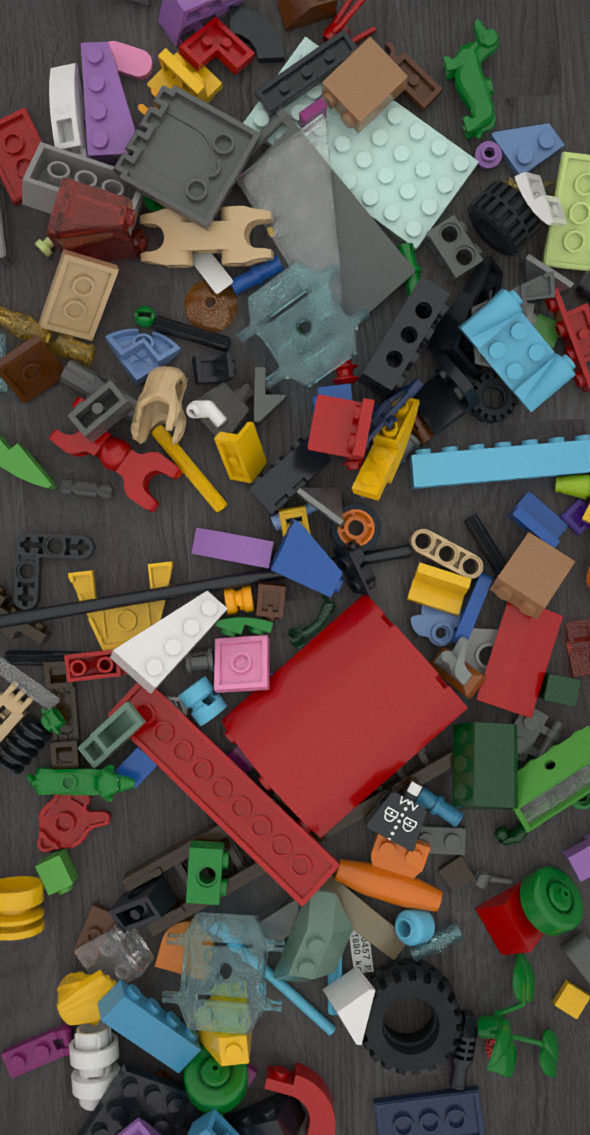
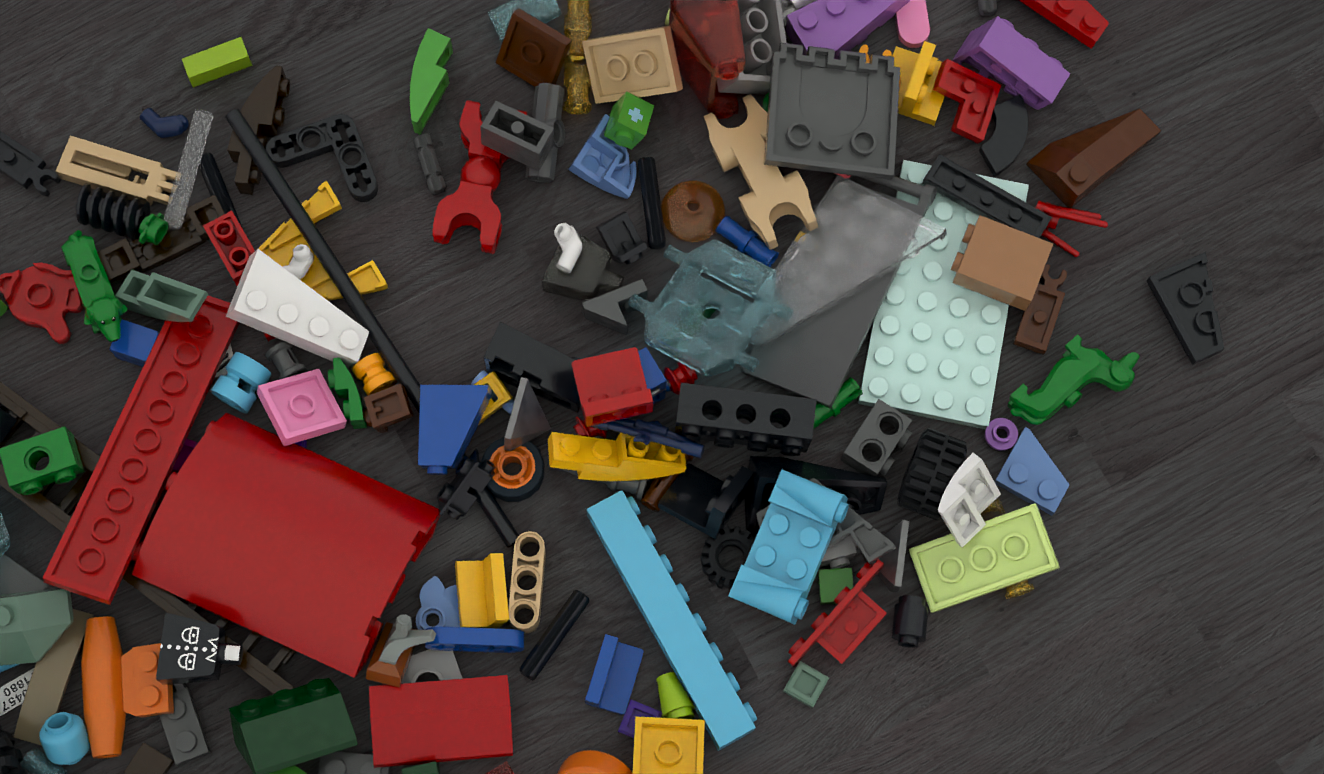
camera: 55 degrees right, 15 degrees down
(120, 320) = (629, 120): none -> bright green brick
(129, 622) = (300, 262): none -> white arm
(145, 322) = (641, 149): green hinge -> none
(160, 404) = (555, 198): tan hair -> none
(189, 469) = (500, 262): yellow axle -> none
(212, 271) = (726, 196): white sticker -> none
(232, 547) = (431, 342): medium lavender slope -> none
(241, 453) = (541, 306): yellow panel -> none
(312, 112) = (946, 220): magenta tile -> none
(325, 613) = (401, 478): clear green piece -> none
(439, 806) = (224, 699): dark azure pin -> none
(532, 576) = (542, 687): medium nougat brick -> none

